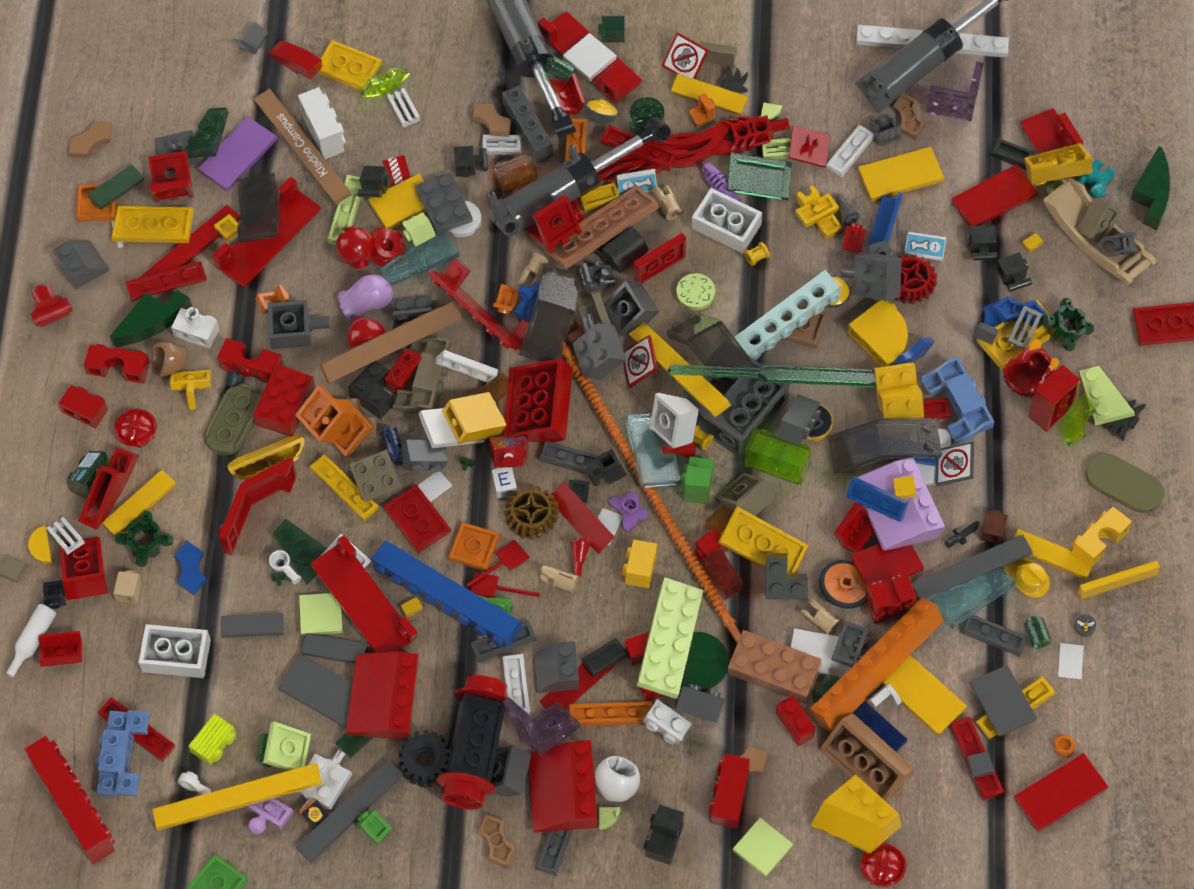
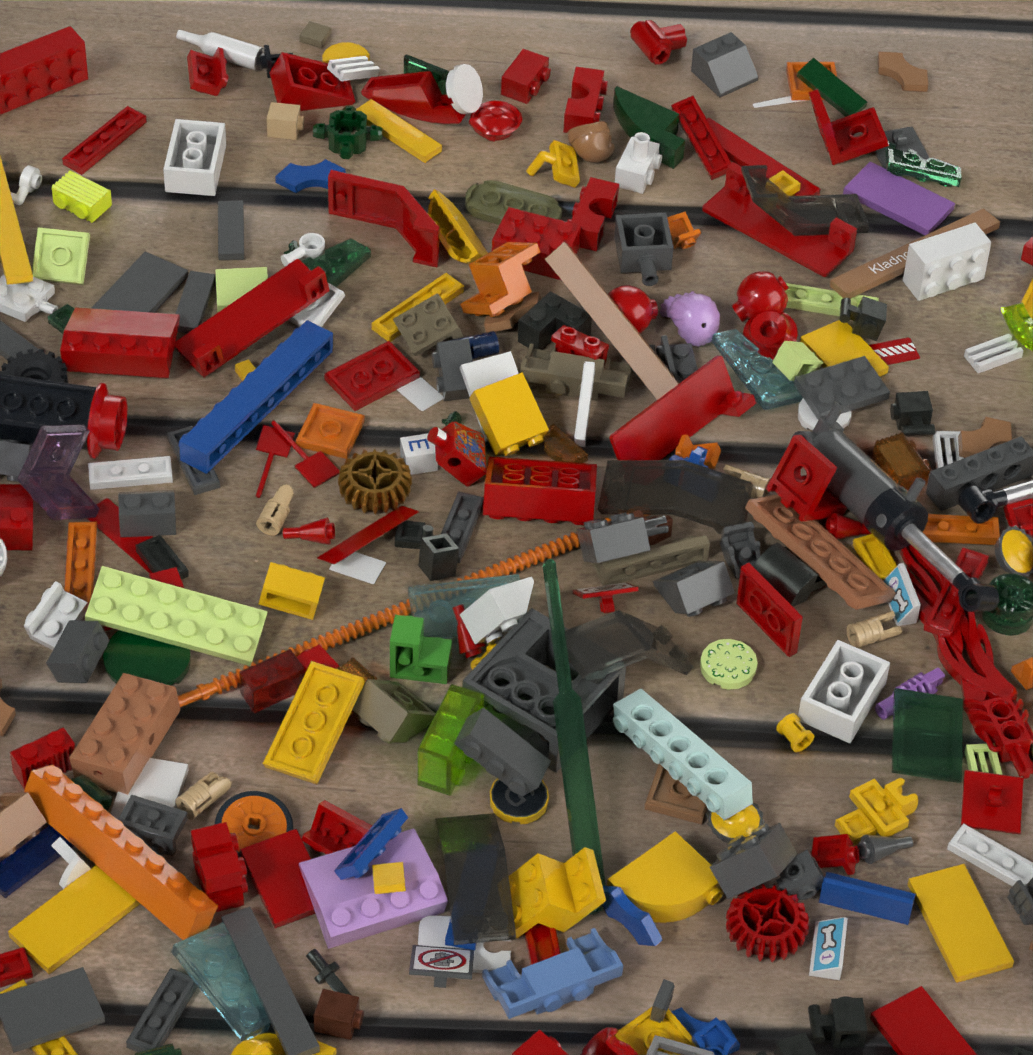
camera: 85 degrees right, 15 degrees down
(116, 443) = (464, 88): none -> white tile
(116, 753) = (68, 116): medium blue bracket -> none
(152, 224) = (784, 125): yellow tile -> none
(502, 603) = (240, 453): bright green cone -> none
(630, 509) = (379, 587): medium lavender animal -> none
(697, 386) = (537, 622): yellow tile -> none
(780, 583) = (253, 739): pearl dark grey brick -> none

